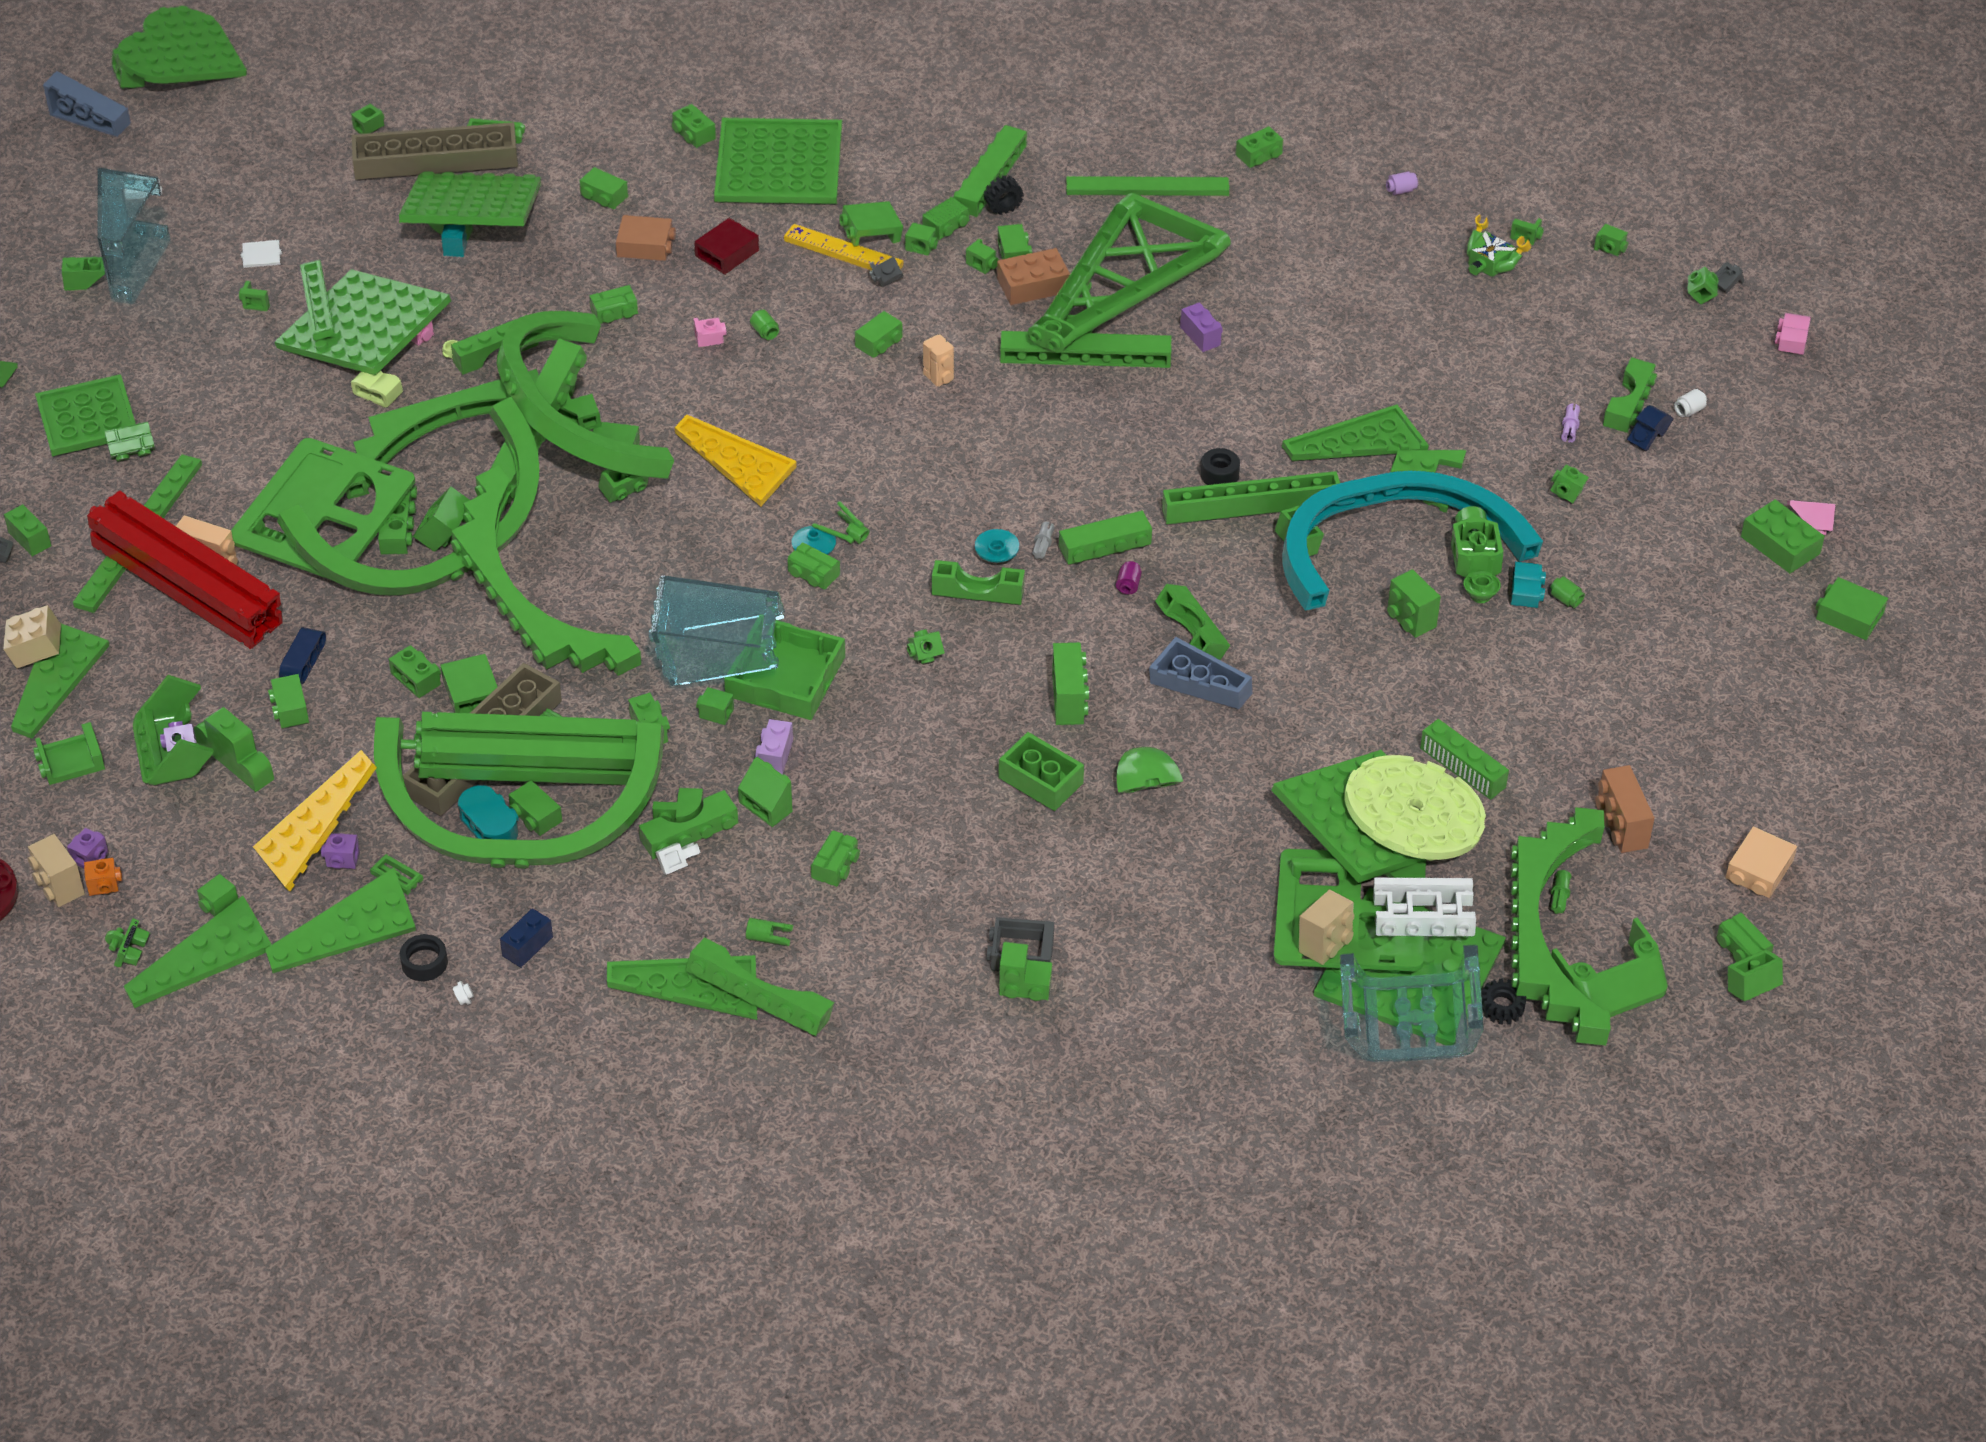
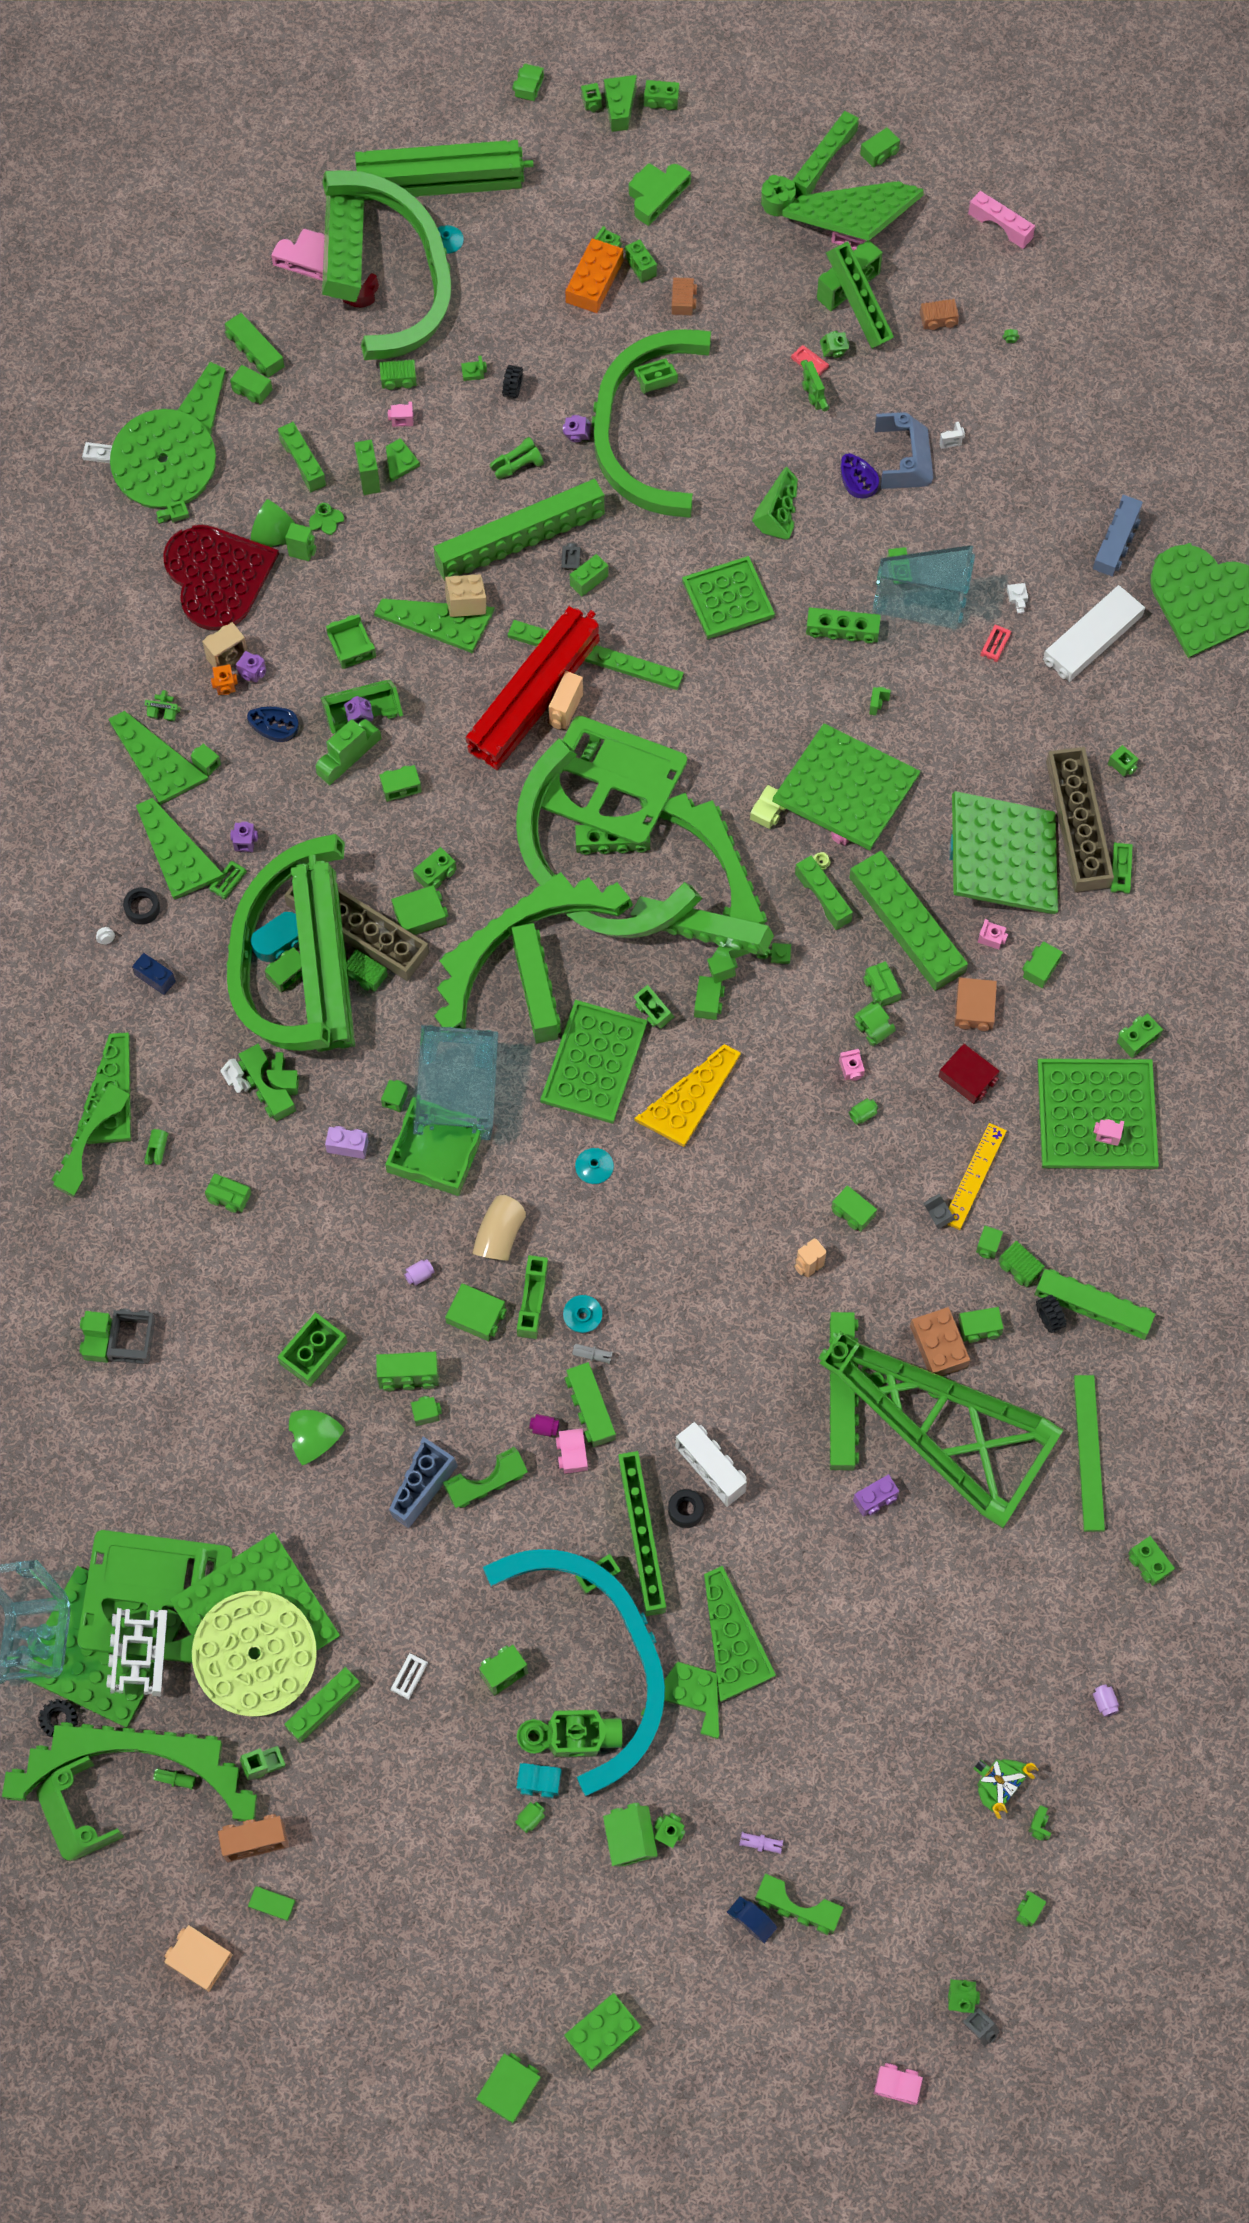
camera: 90 degrees right, 20 degrees up
(129, 441) = (692, 631): bright green brick -> none
(148, 321) = (839, 618): none -> bright green brick
(177, 842) = (273, 732): none -> dark blue piece
(194, 211) = (990, 655): none -> coral tile
(204, 133) = (1093, 633): none -> white brick
(261, 253) = (942, 700): white piece -> none
(303, 653) = (454, 787): dark blue beam -> none
(312, 822) = (261, 808): yellow wing -> none
(317, 300) = (870, 747): bright green tile -> none
(441, 519) = (598, 868): bright green brick -> none
(537, 282) = (908, 920): none -> bright green brick
(546, 420) = (651, 971): bright green arch -> none
(563, 218) = (989, 939): none -> bright pink brick
(586, 574) = (536, 983): none -> bright green brick
(645, 708) = (377, 1045): bright green brick -> none
(663, 306) = (874, 1022): none -> bright green brick
(685, 536) = (594, 1061): none -> bright green plate
(766, 792) = (292, 1137): bright green slope -> none
(805, 143) = (1108, 1131): none -> bright pink brick
(813, 566) = (556, 1164): bright green brick -> none
(855, 530) = (599, 1198): bright green plant -> none
(870, 220) = (1004, 1195): bright green panel -> none
(895, 605) = (499, 1228): none -> tan brick
(932, 643) = (458, 1256): bright green brick -> none
(943, 683) = (419, 1272): none -> lavender brick
(981, 257) = (967, 1297): bright green brick -> none
(993, 634) = (476, 1312): none -> bright green brick
(1113, 676) = (426, 1410): none -> bright green brick
(1158, 554) = (573, 1451): none -> bright pink brick
(1173, 440) = (711, 1463): none -> white brick
(1326, 927) = (109, 1566): tan brick -> none
(1420, 696) = (401, 1691): none -> white tile
(1538, 808) = (261, 1762): none -> bright green brick
(1580, 507) = (630, 1835): none -> bright green brick
(1689, 805) = (271, 1903): none -> bright green tile
(1690, 403) = (789, 1964): white brick -> none
(1742, 937) = (110, 1932): bright green brick -> none
(1755, 975) = (67, 1934): bright green brick -> none
(1815, 514) = (635, 2066): bright pink slope -> none

